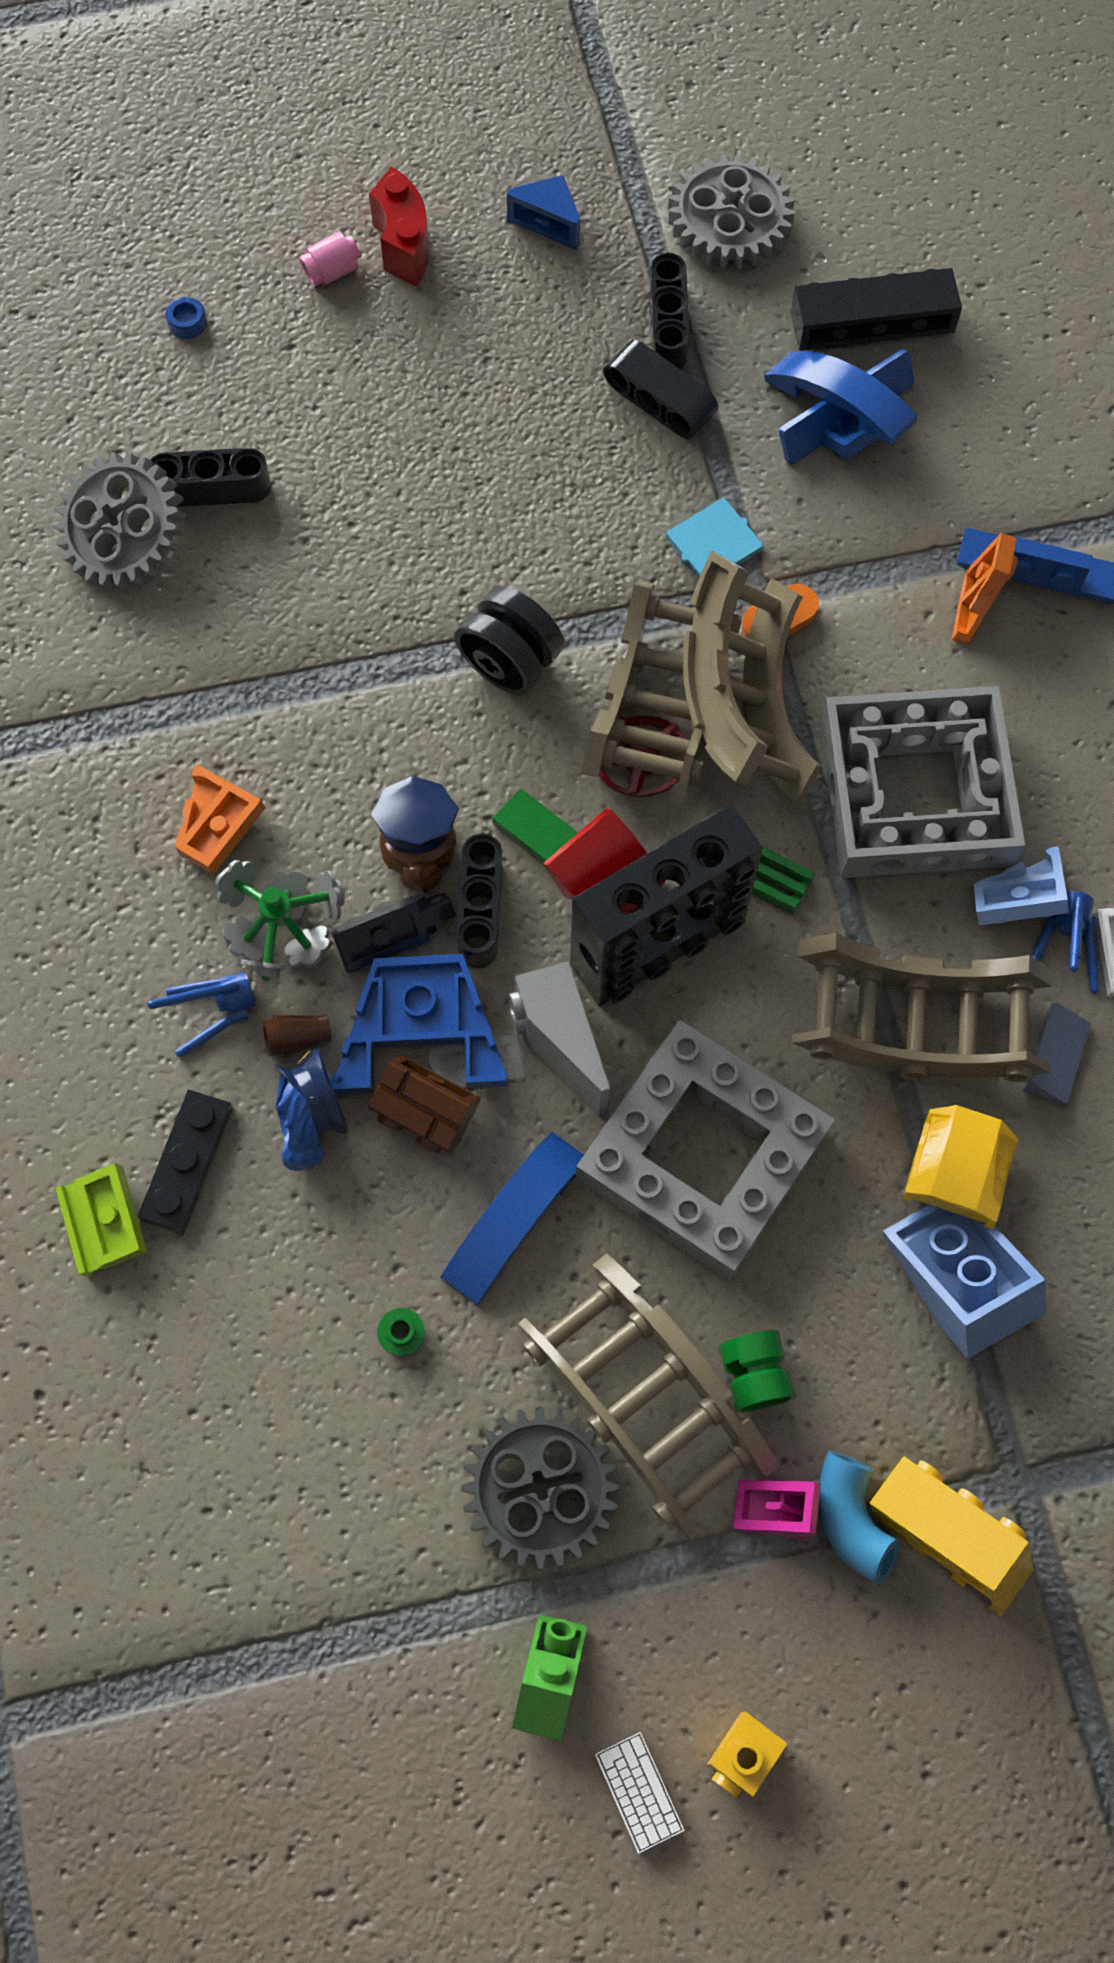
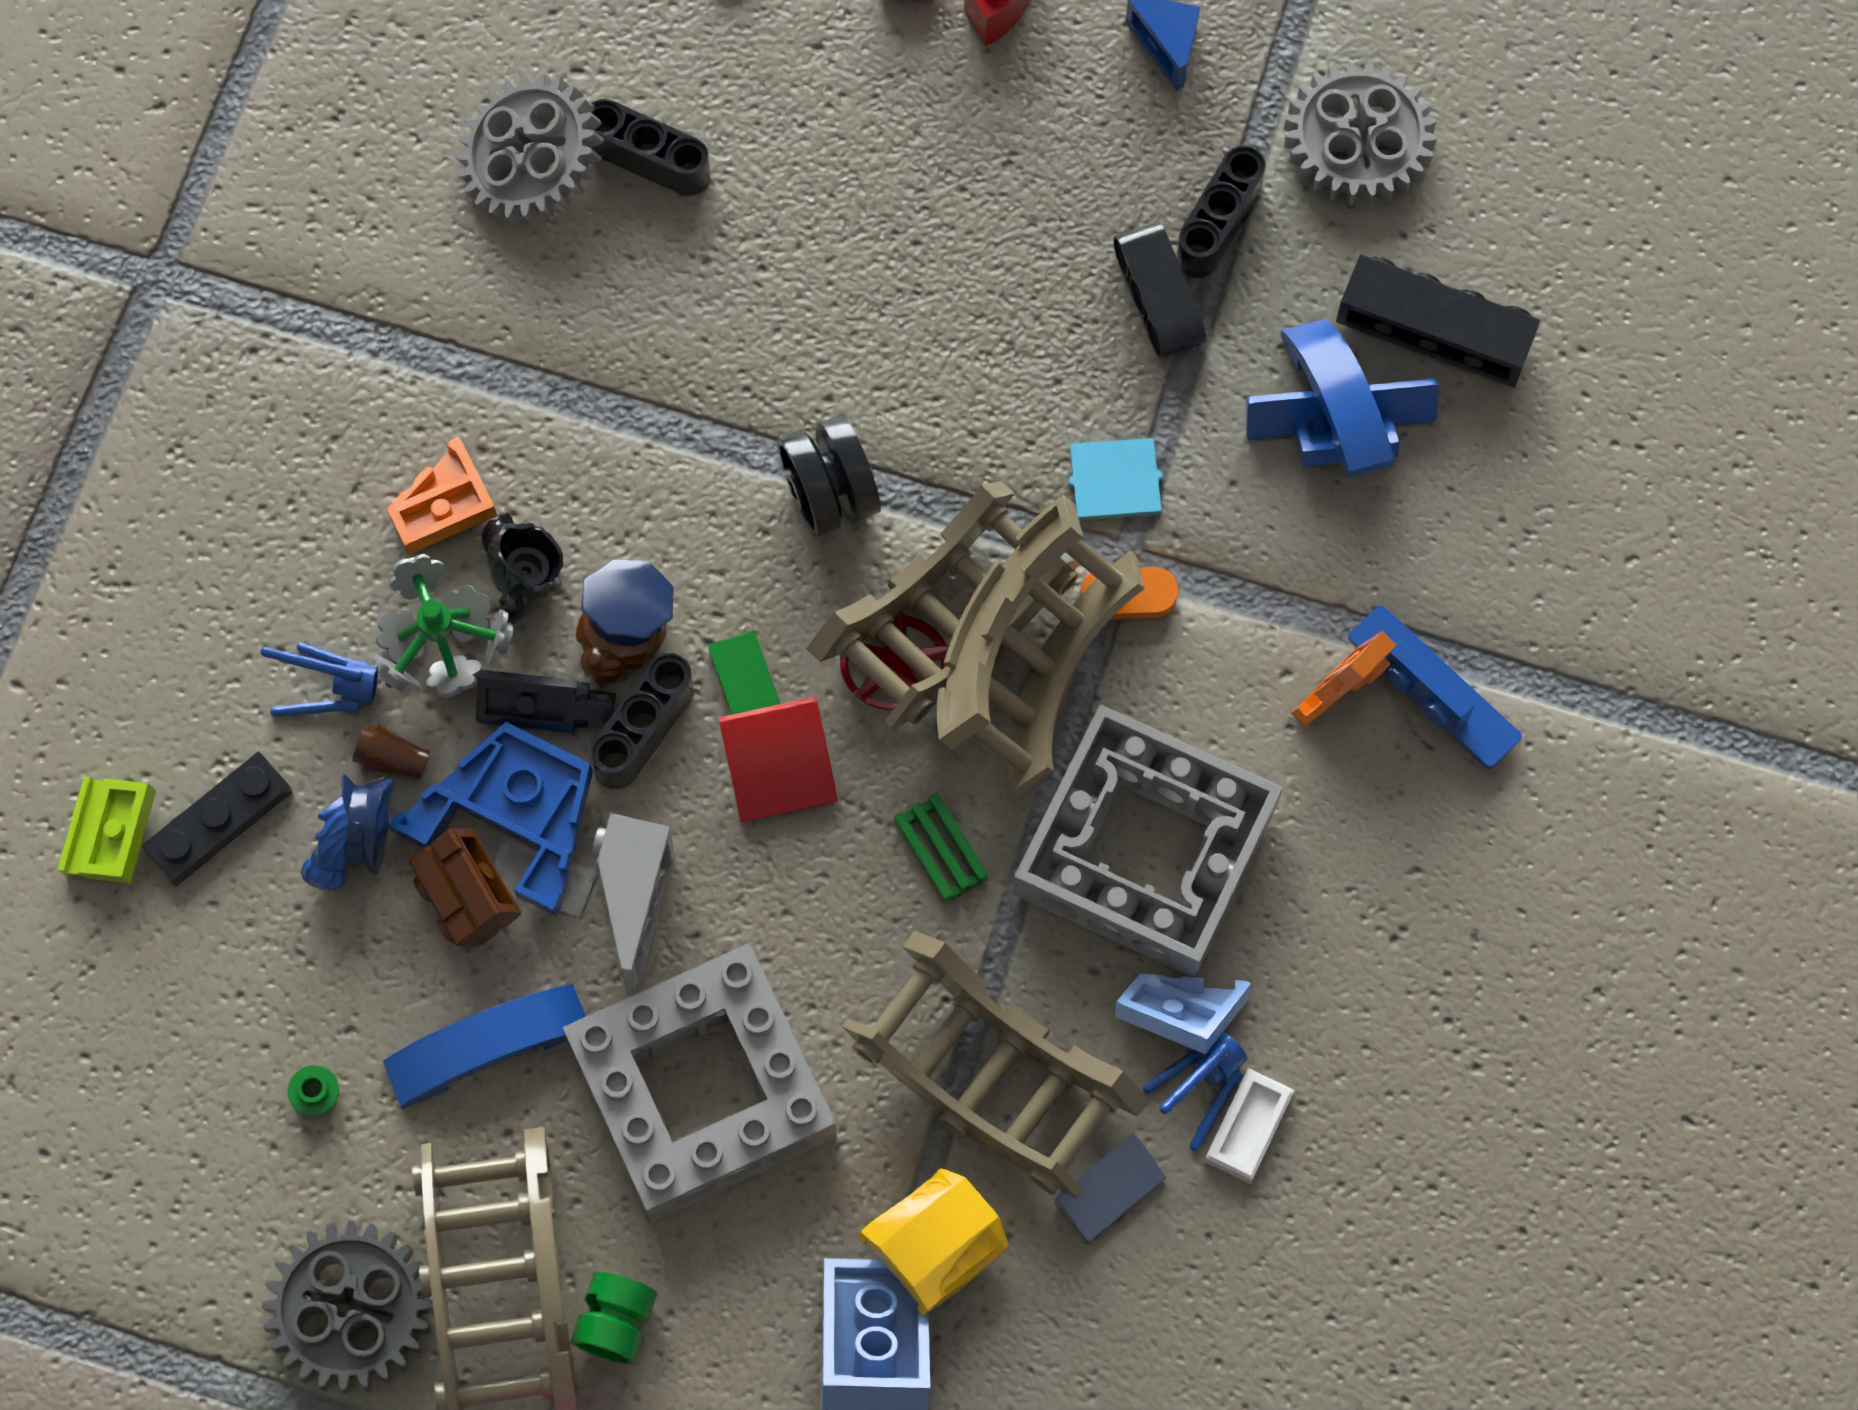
camera: 30 degrees right, 0 degrees up
(307, 830) = (518, 549): none -> black hair
(714, 873) = (721, 833): black brick -> none

